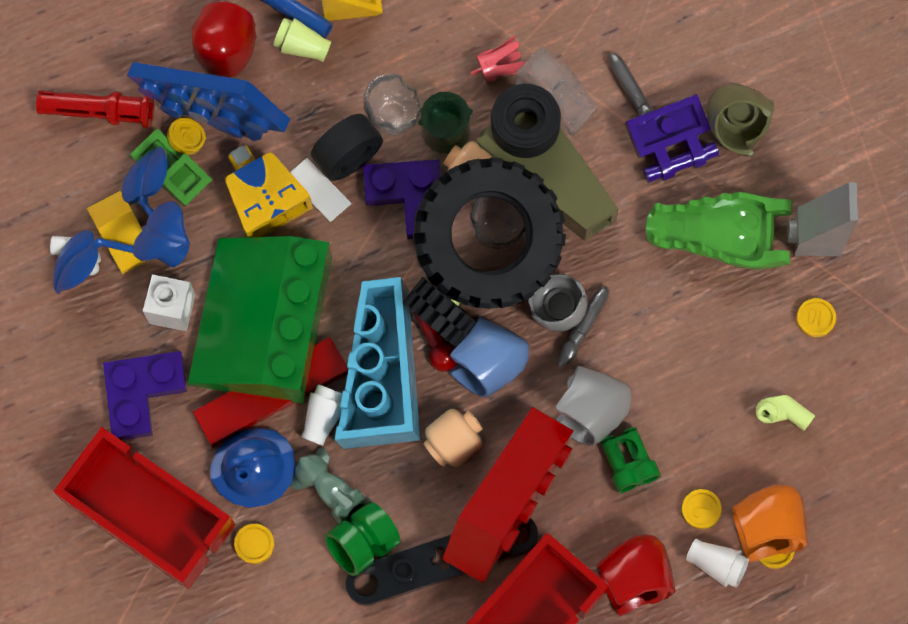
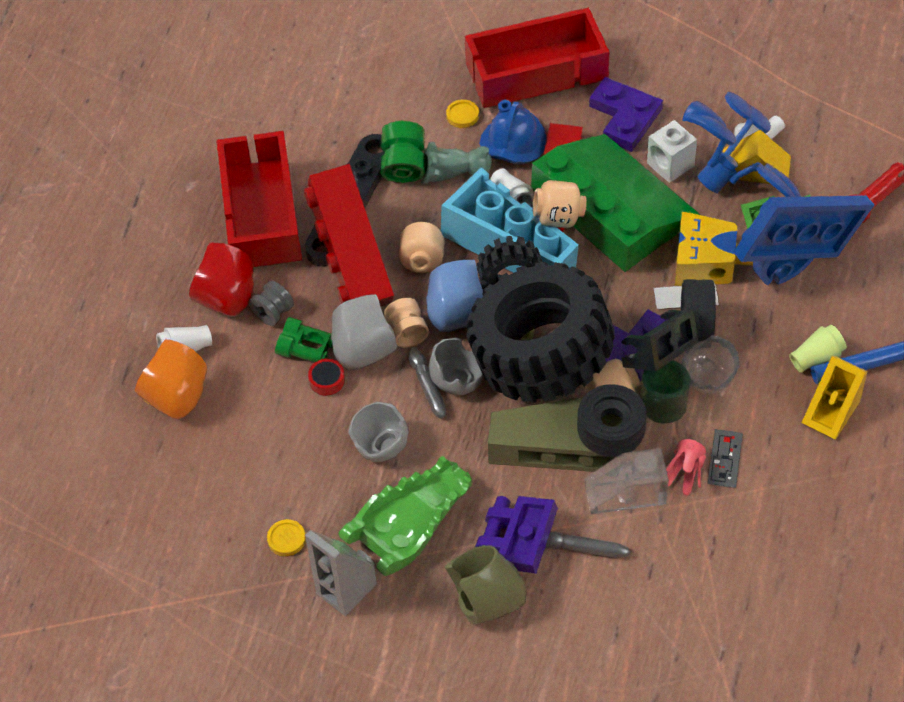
camera: 130 degrees right, 20 degrees down
(223, 38) = (856, 291): red piece -> none
(337, 322) = (558, 204): none -> light nougat head
(416, 138) = (663, 342): none -> black hinge
(461, 48) = (725, 458): none -> dark grey sticker
(543, 384) = (406, 322): none -> light nougat wheel
(618, 518) = (271, 303): none -> dark grey wheel
(647, 412) = (326, 377): none -> tile
(672, 310) = (379, 431): none -> light grey hair
(701, 509) = (229, 365): yellow piece -> none
(783, 408) = (244, 459): yellowish green arm -> none

